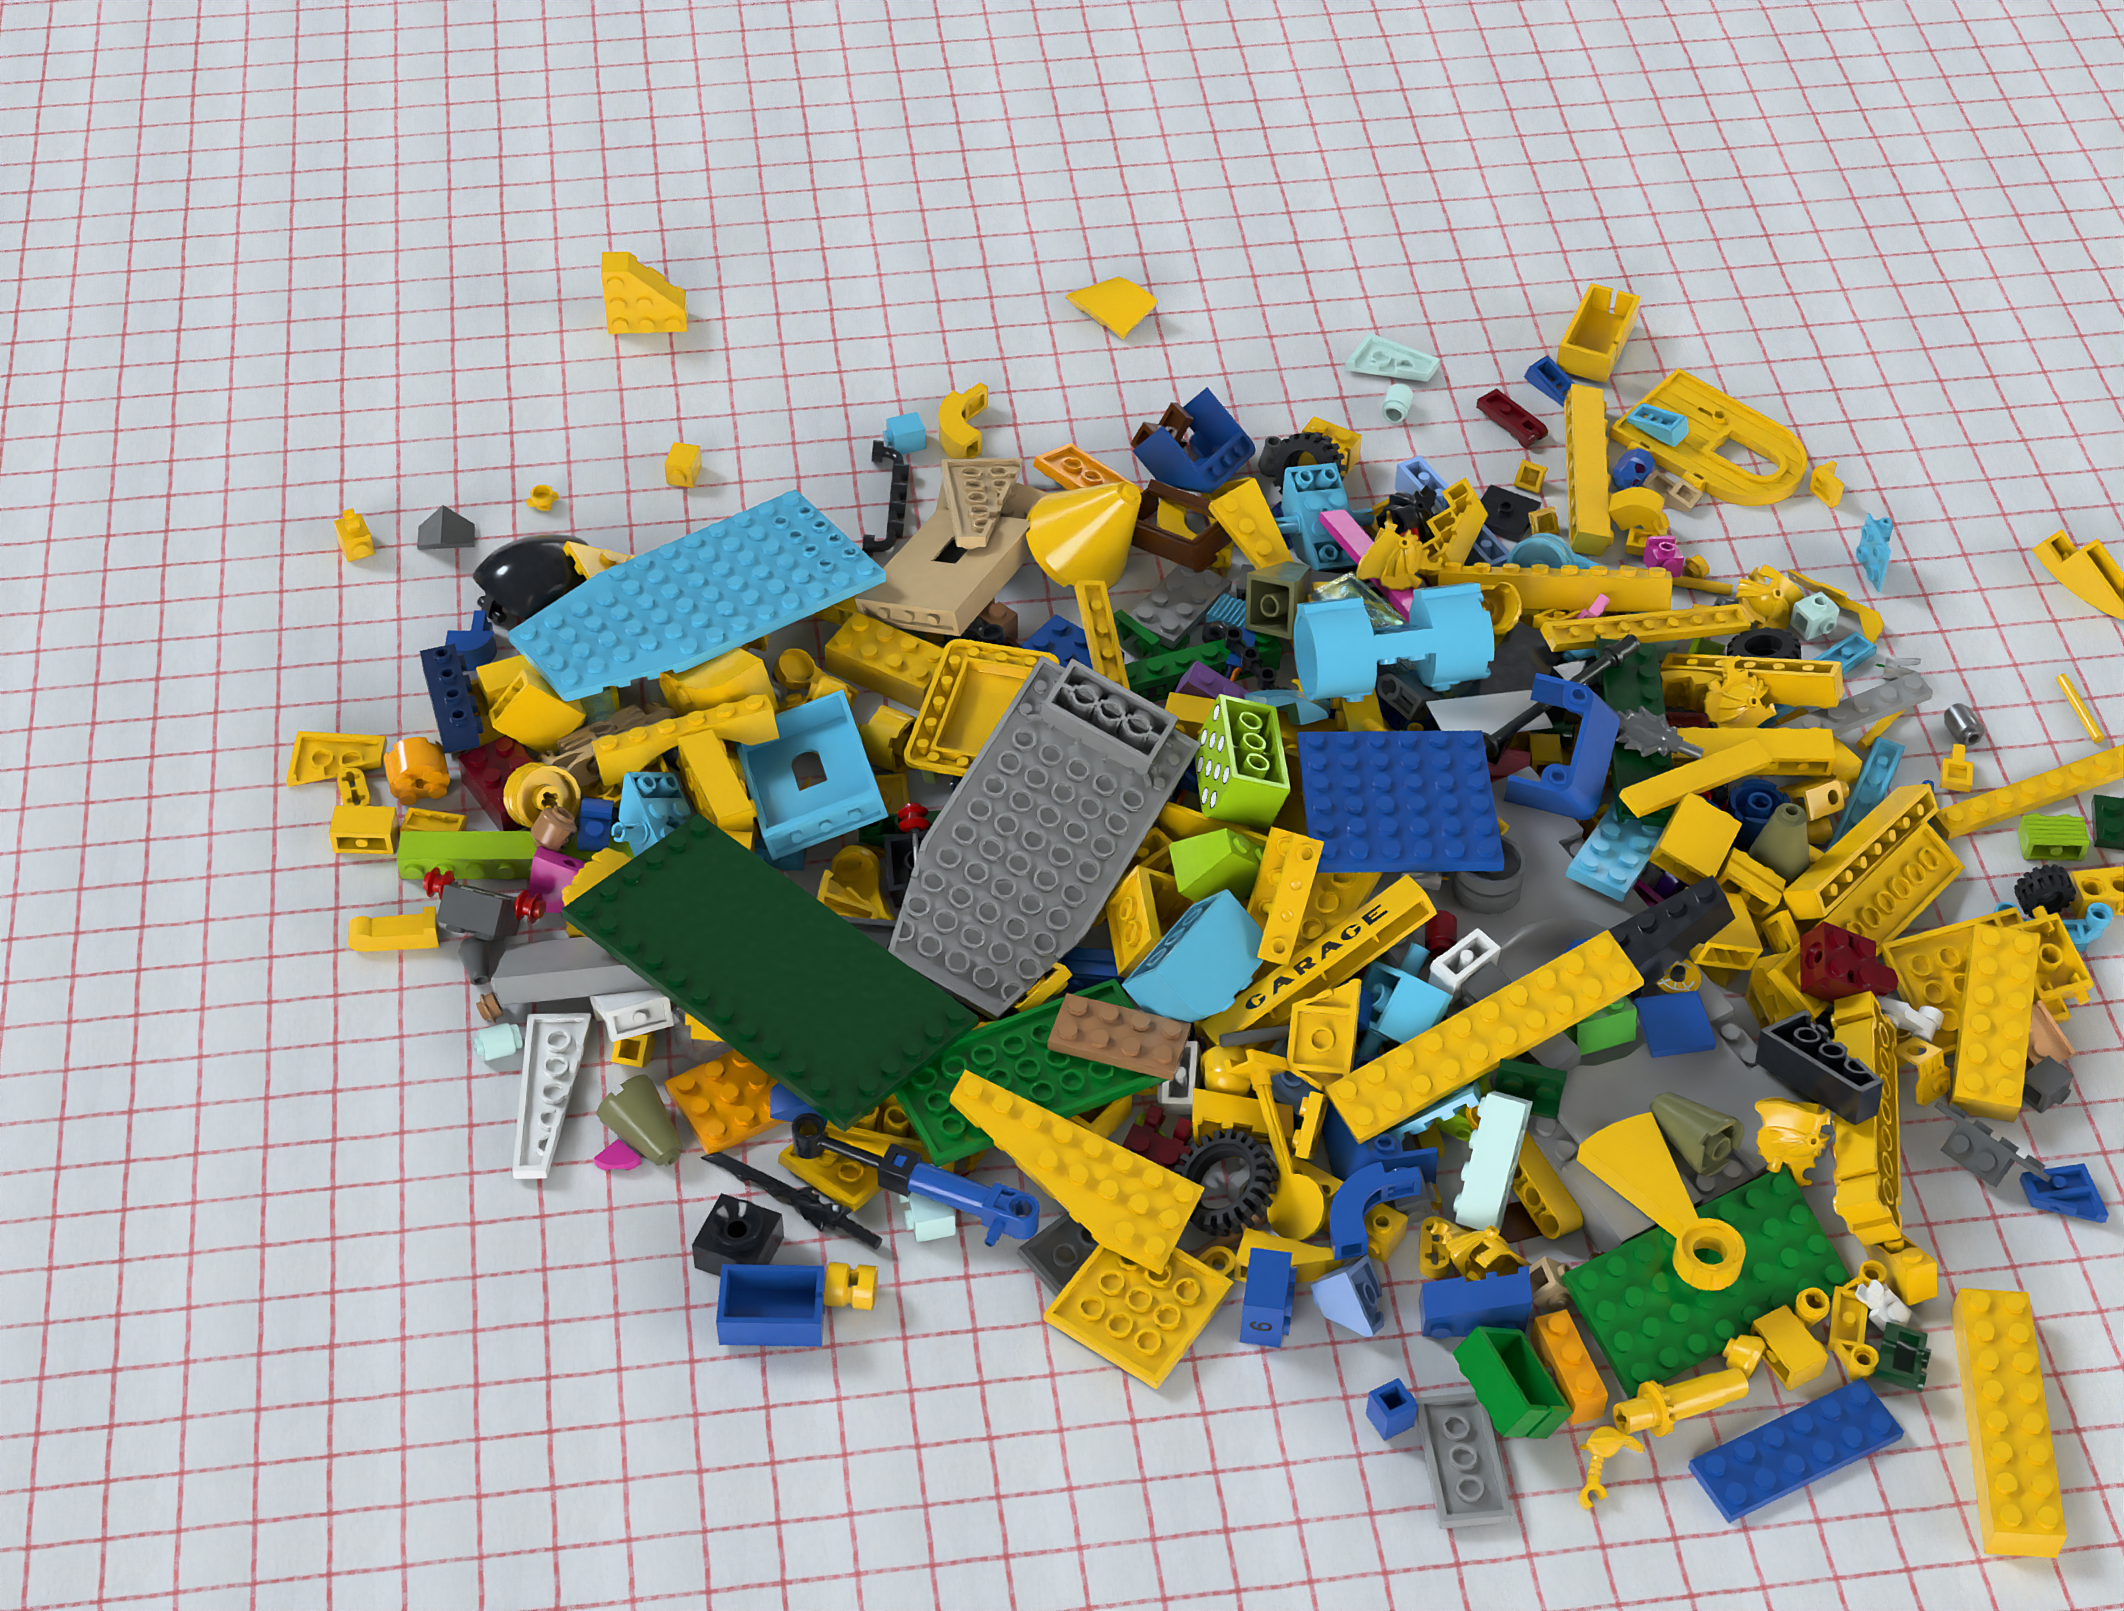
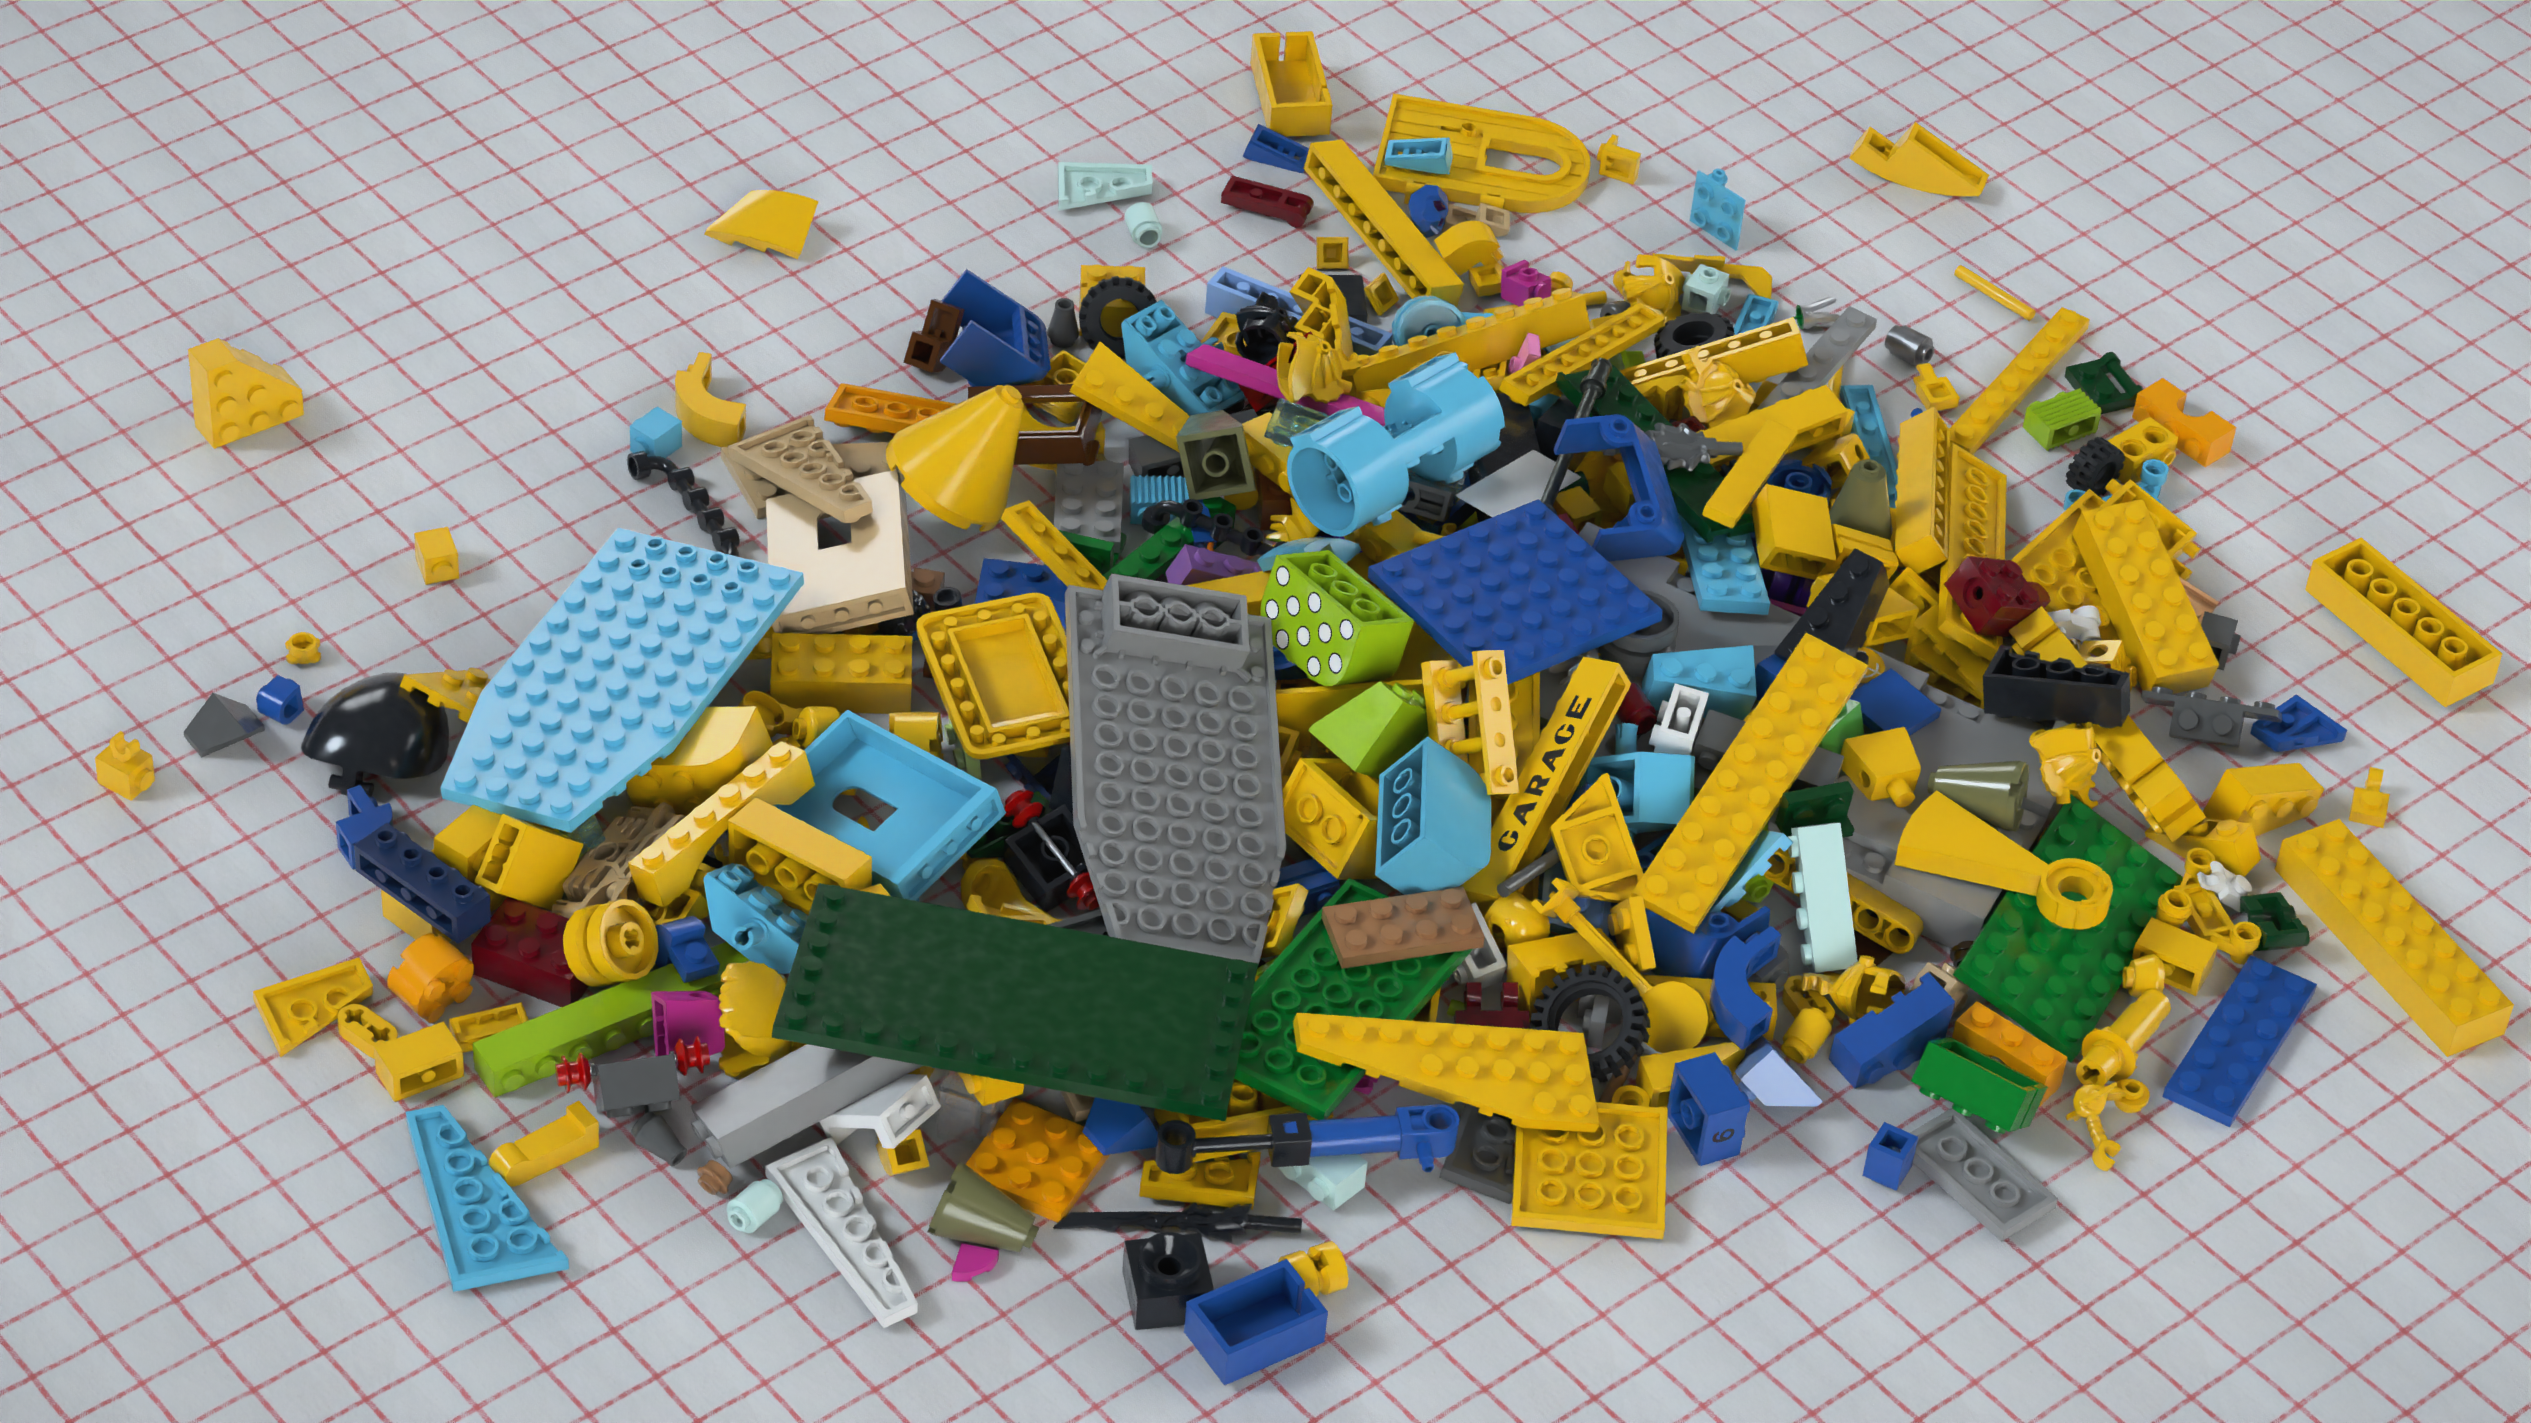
camera: 35 degrees left, 5 degrees down
(310, 962) = (475, 1212): none -> medium azure wing
(494, 529) = (280, 700): none -> blue plate
(553, 829) = (654, 968): medium nougat head -> none
(1406, 1272) = (1806, 1035): none -> yellow brick
(1525, 936) = (1721, 672): none -> medium azure wedge
(1623, 1070) = (1883, 765): none -> yellow torso
(1653, 1460) = (2136, 1095): none -> yellow plate
(1977, 1243) = (2264, 796): none -> yellow wedge
(2085, 1291) = (2368, 803): none -> yellow plate

